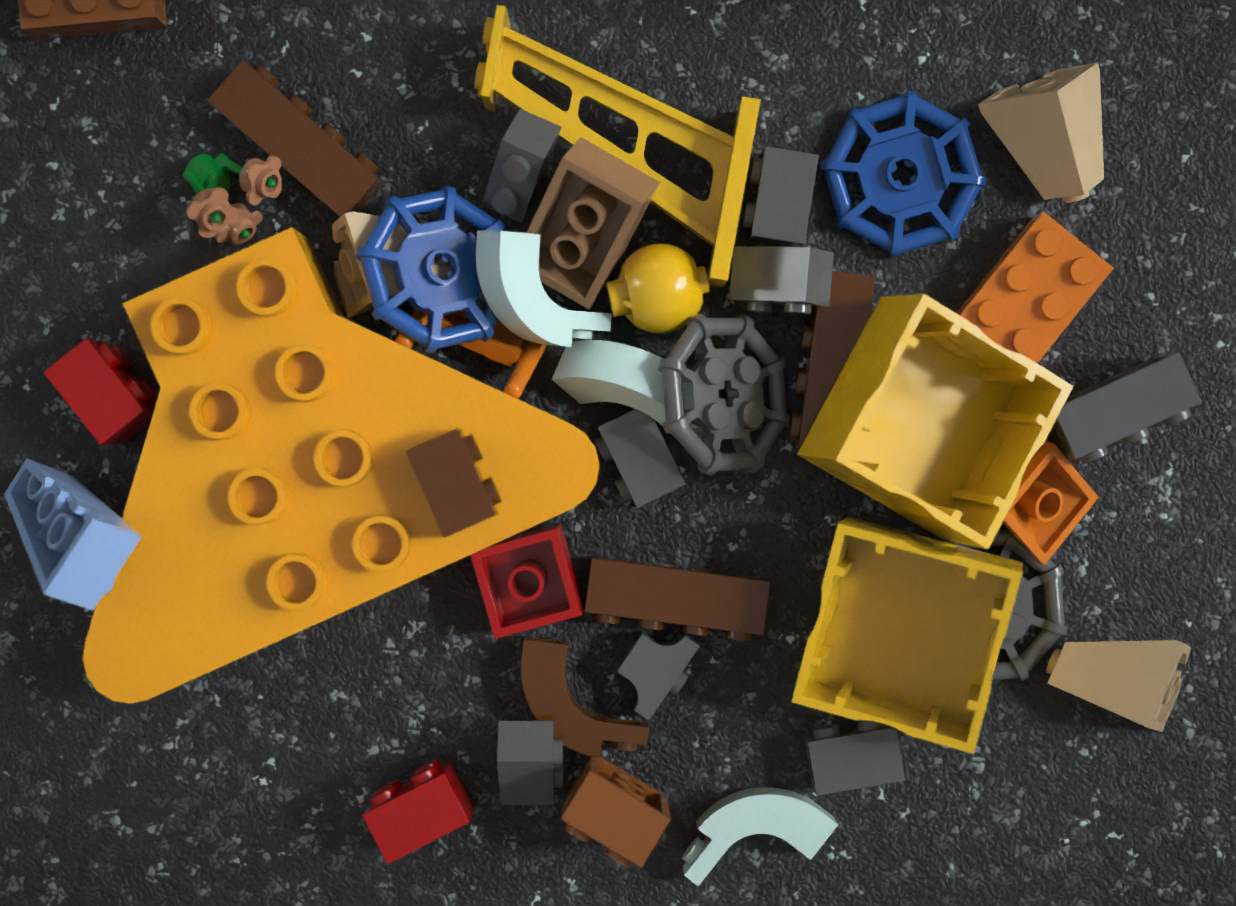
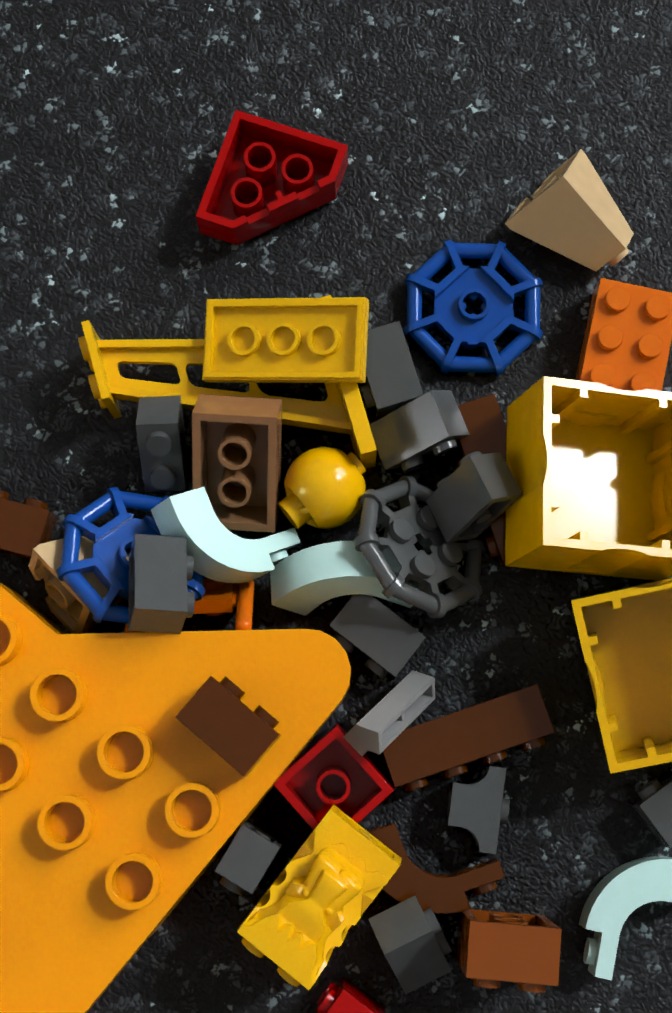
camera: 25 degrees left, 10 degrees down
(413, 610) = (247, 859): none -> dark grey brick
(450, 312) = (159, 584): none -> dark grey brick
(461, 679) = (318, 898): none -> yellow brick
(617, 542) = (392, 714): none -> light grey piece
(692, 124) = (286, 340): none -> yellow tile
(800, 371) = (473, 496): none -> dark grey brick

